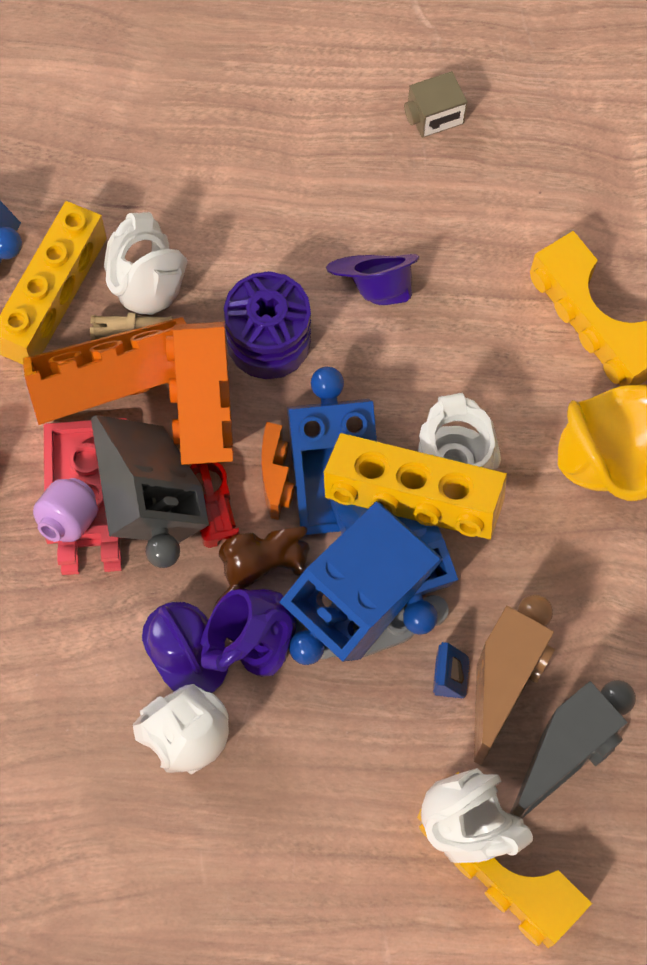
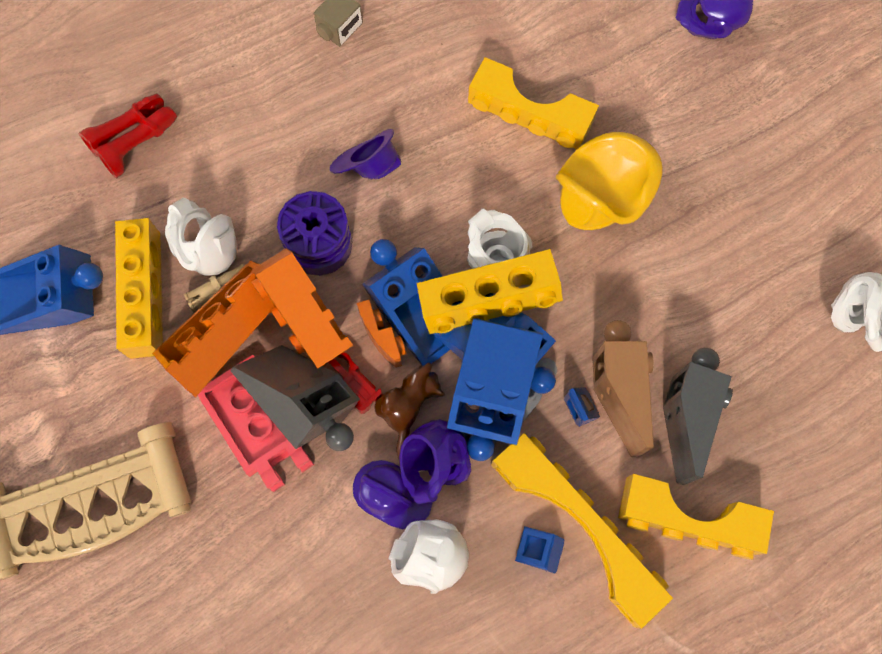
camera: 30 degrees left, 5 degrees up
(65, 510) = (251, 448): lavender head -> none
(168, 114) = (152, 121): none -> red piece
(309, 799) = (540, 549): none -> blue slope
(384, 893) = (630, 585): none -> yellow arch
(467, 820) = (662, 496): white helmet -> none

